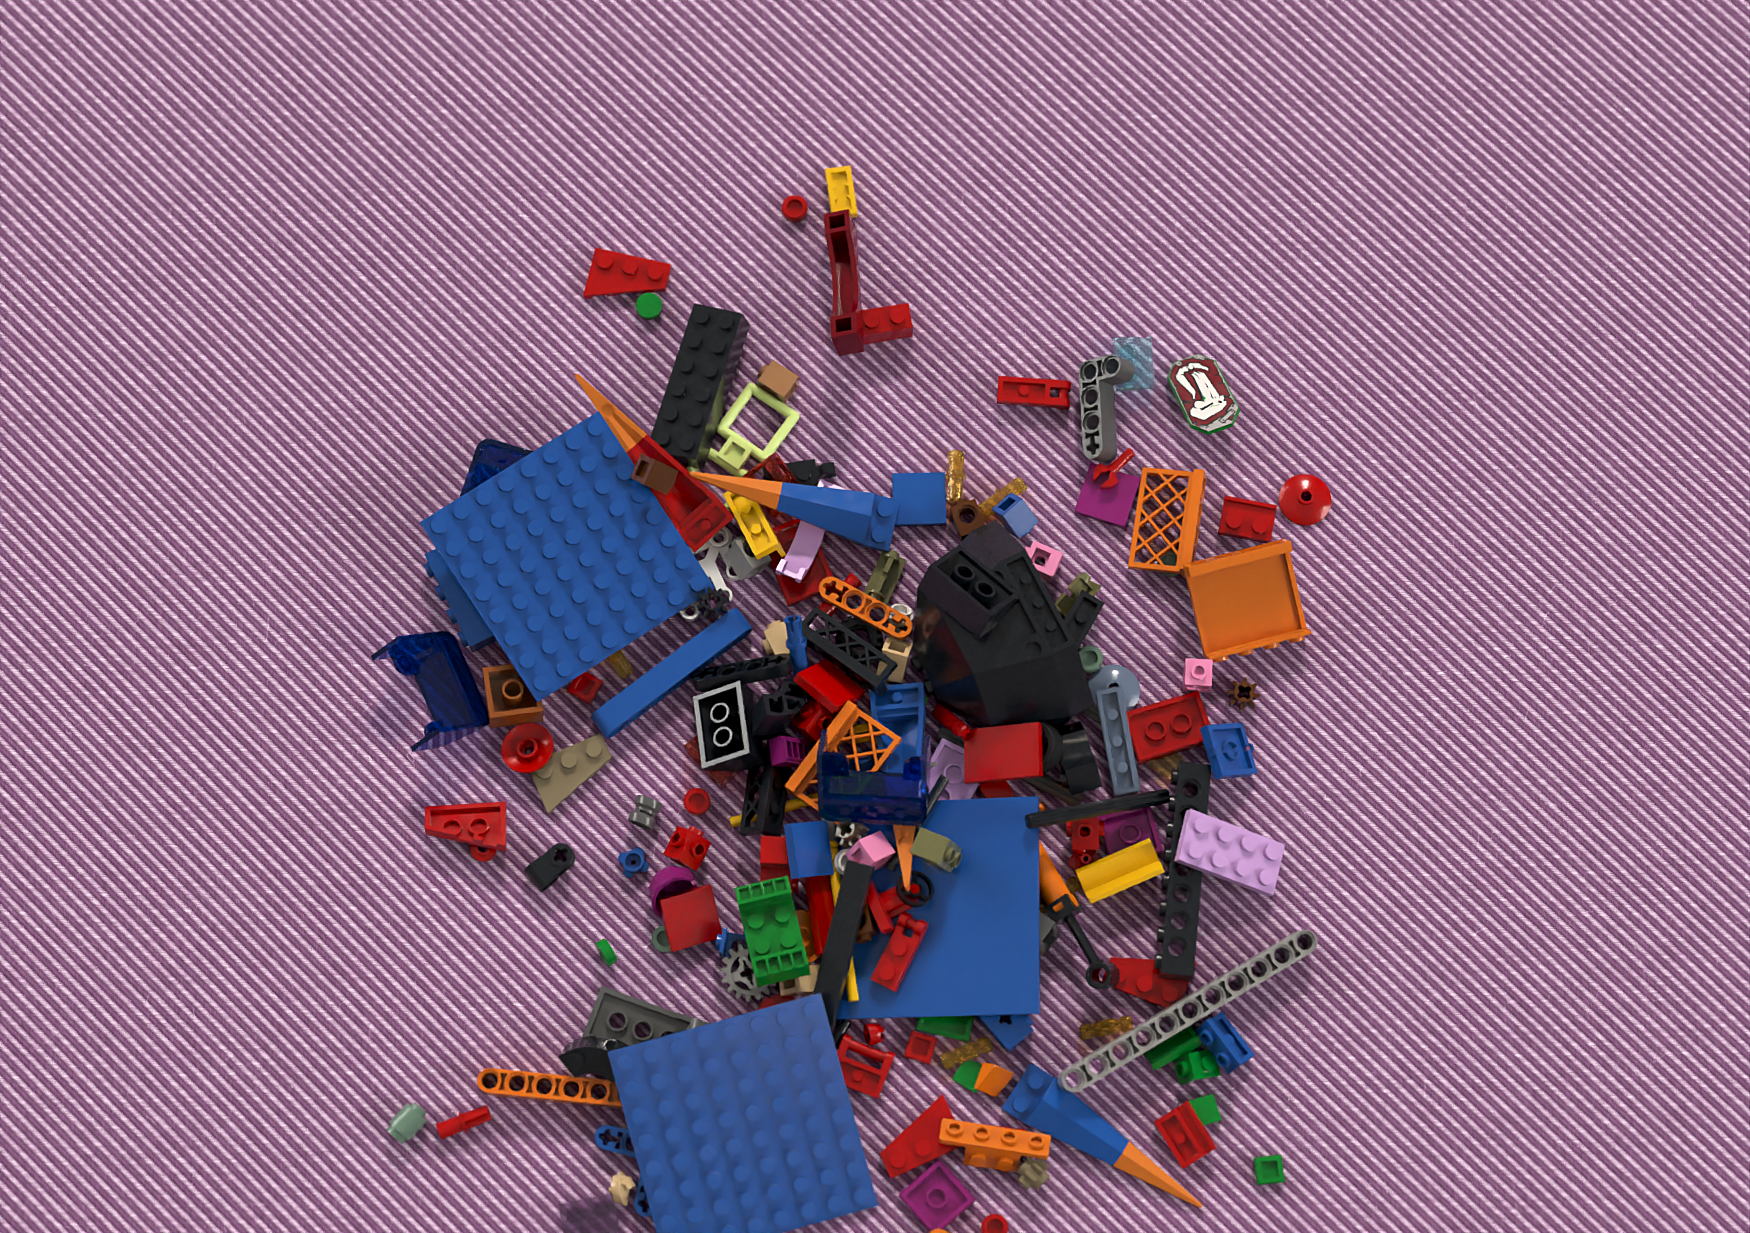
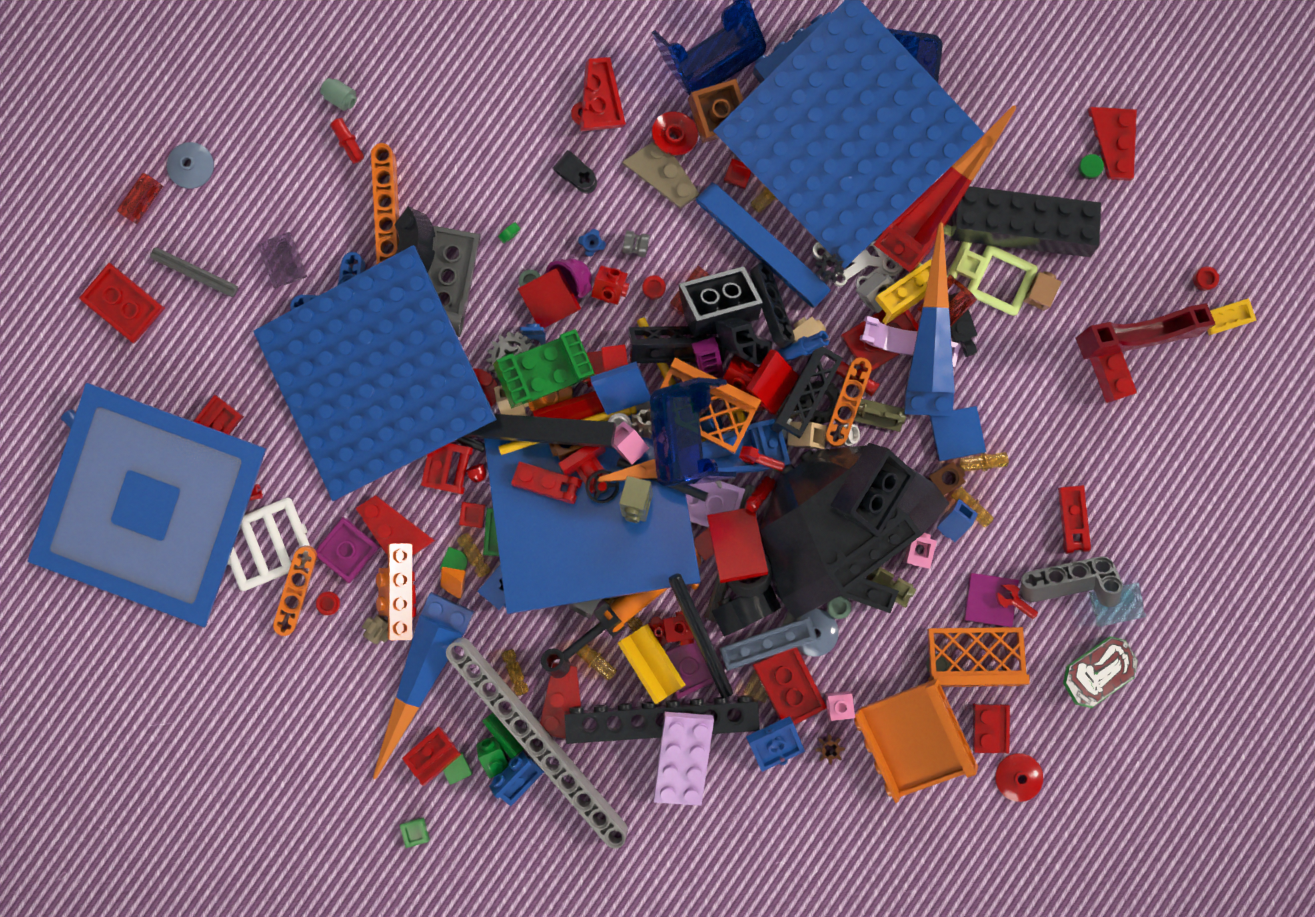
camera: 80 degrees right, 10 degrees up
(621, 1187) = (310, 281): tan hat -> none
(654, 474) = (935, 193): reddish brown brick -> none
(907, 720) = (750, 455): none -> red bar
(1109, 932) = (598, 663): none -> clear yellow axle

